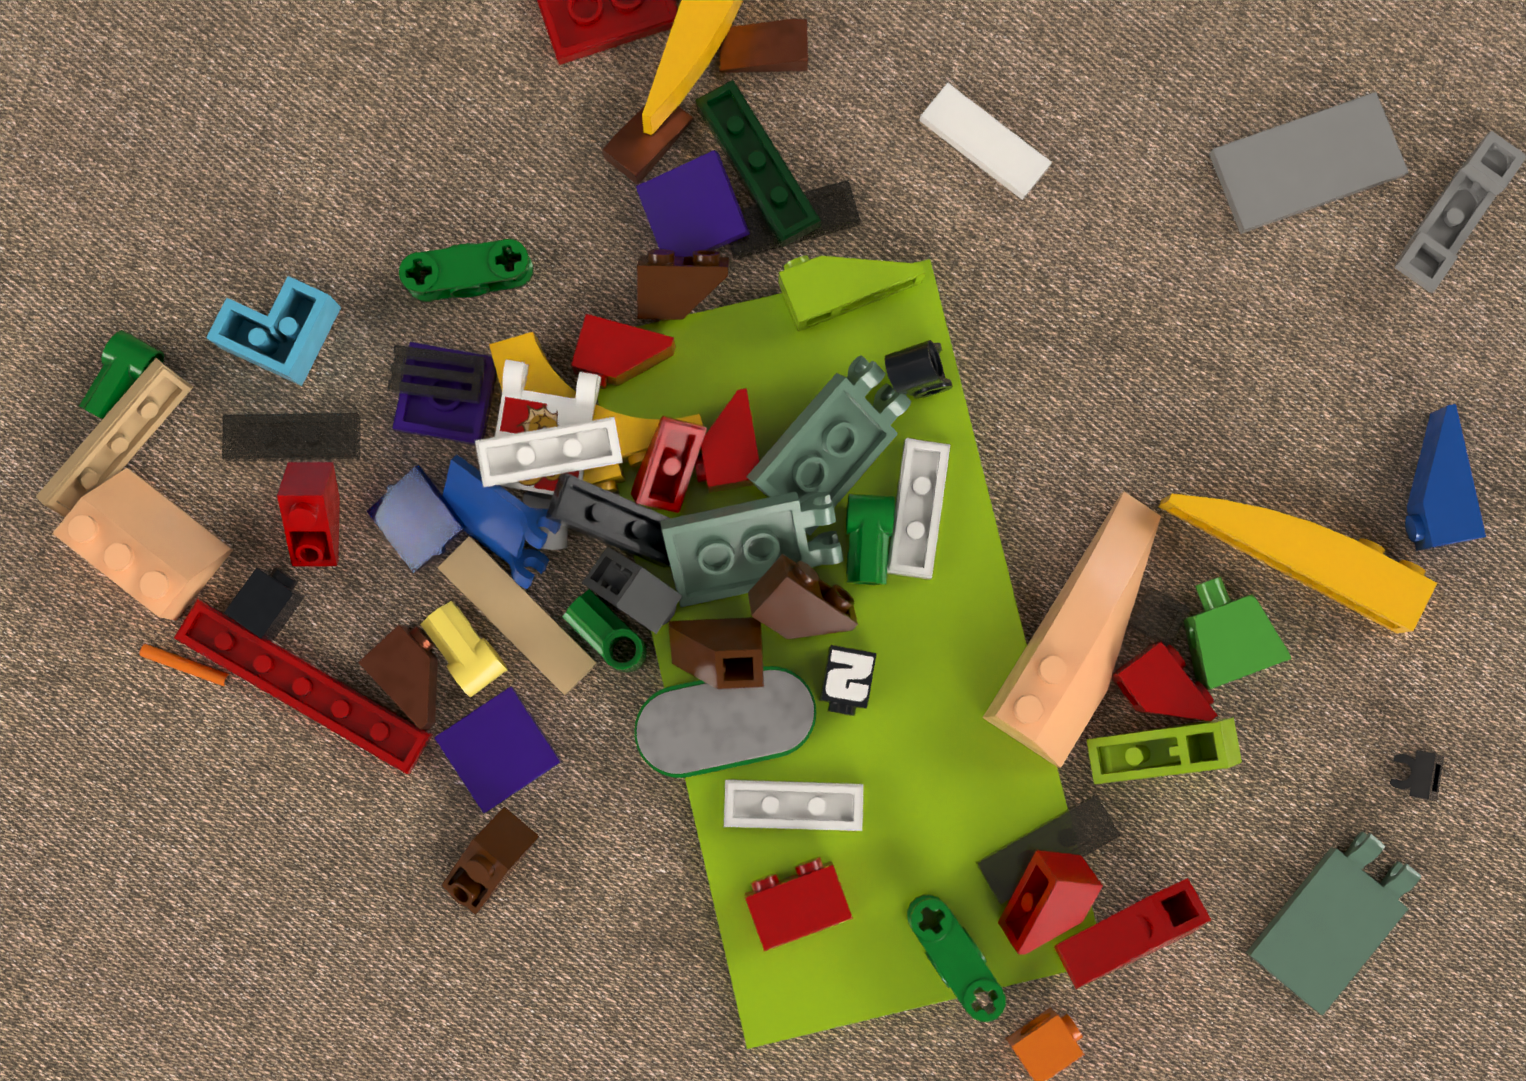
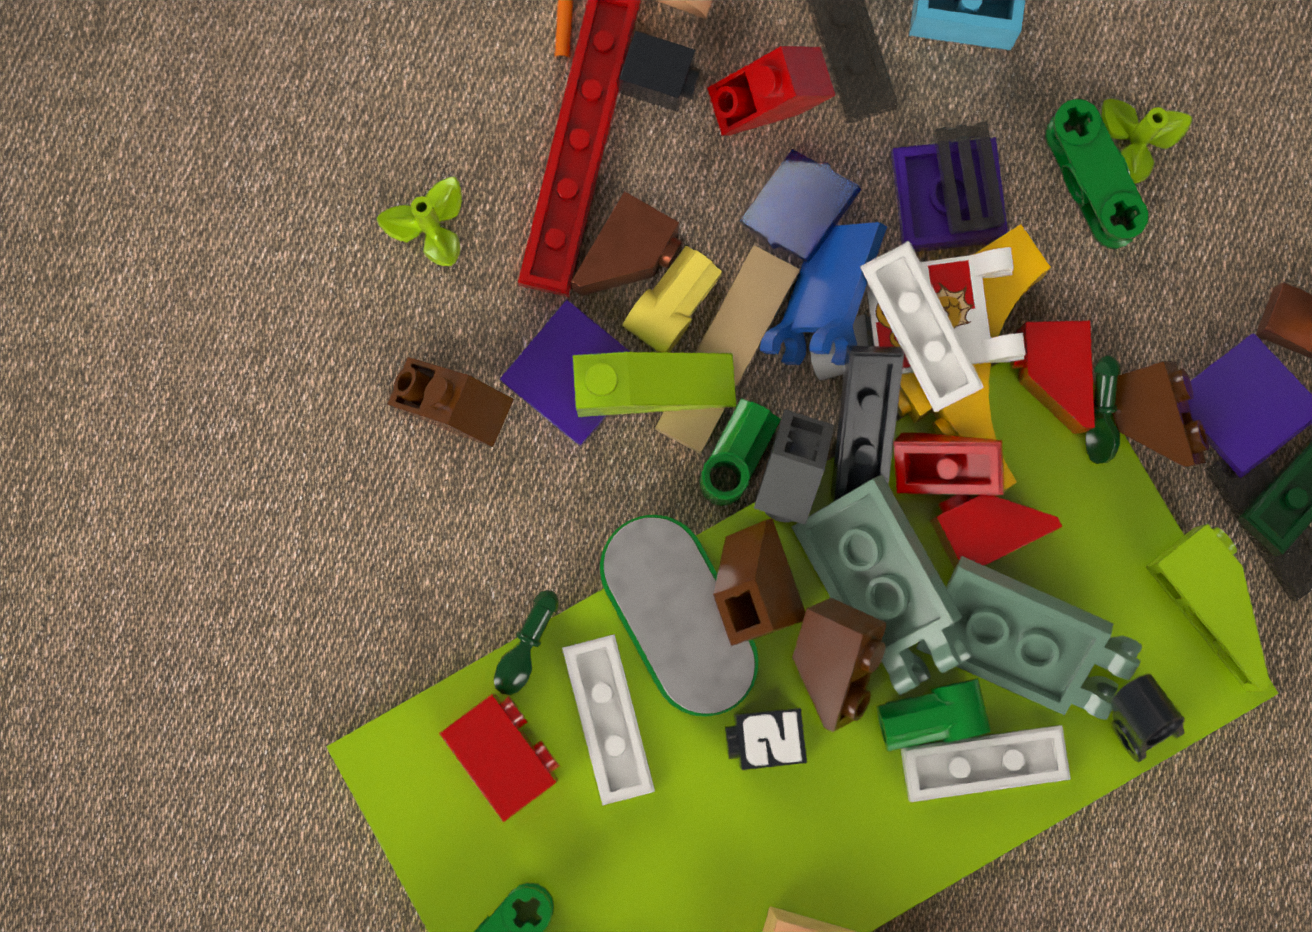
camera: 75 degrees right, 0 degrees up
(324, 835) = (425, 215): none -> lime plant
(444, 209) = (1156, 128): none -> lime plant
(526, 686) = (652, 382): none -> lime slope
(685, 332) = (1104, 438): none -> dark green piece
(726, 869) = (515, 665): none -> dark green piece

